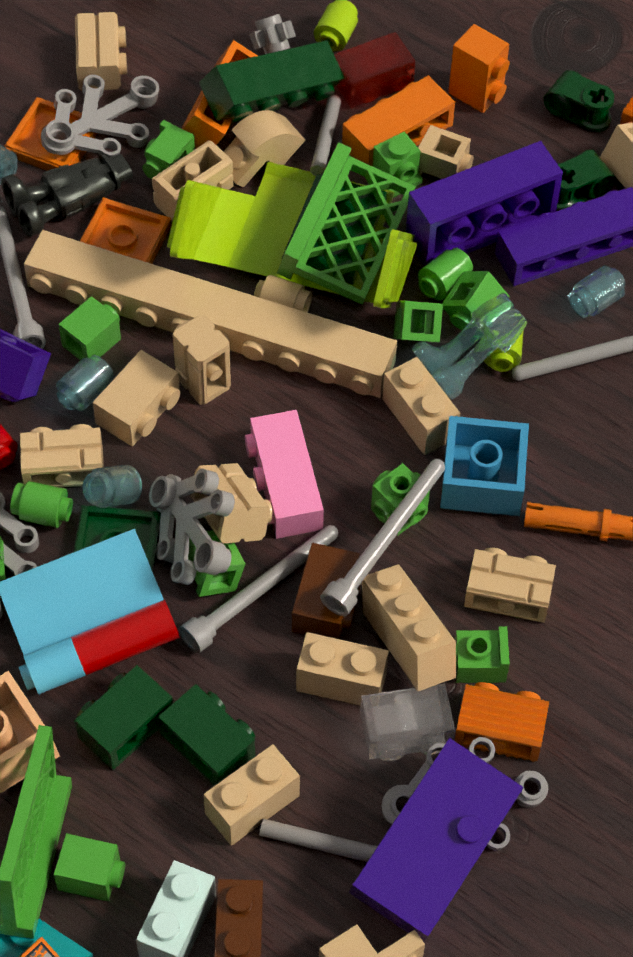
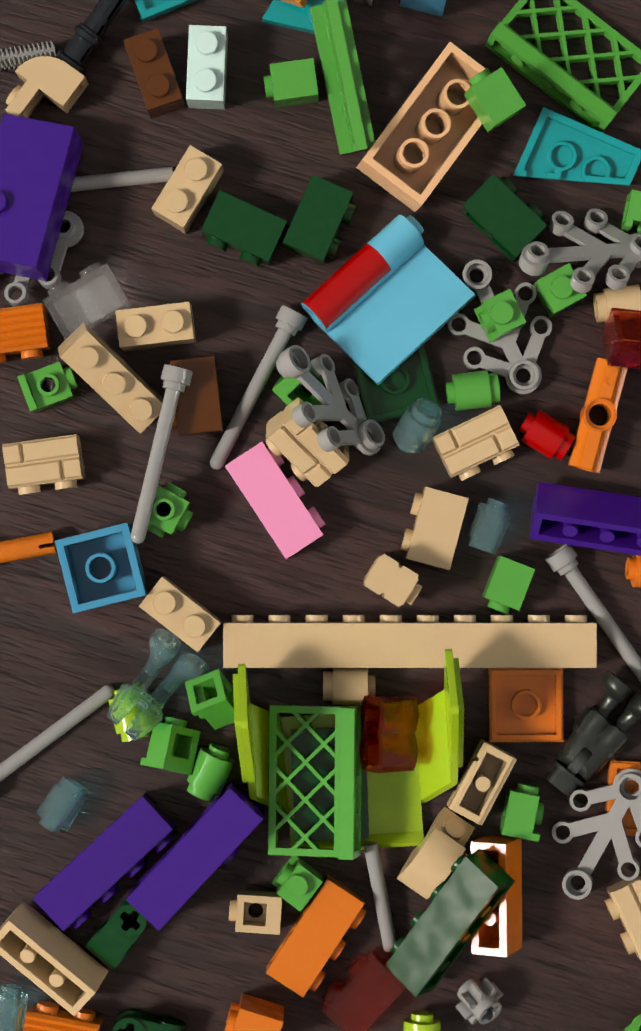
camera: 160 degrees right, 30 degrees up
(260, 240) = (389, 733): none -> clear red brick

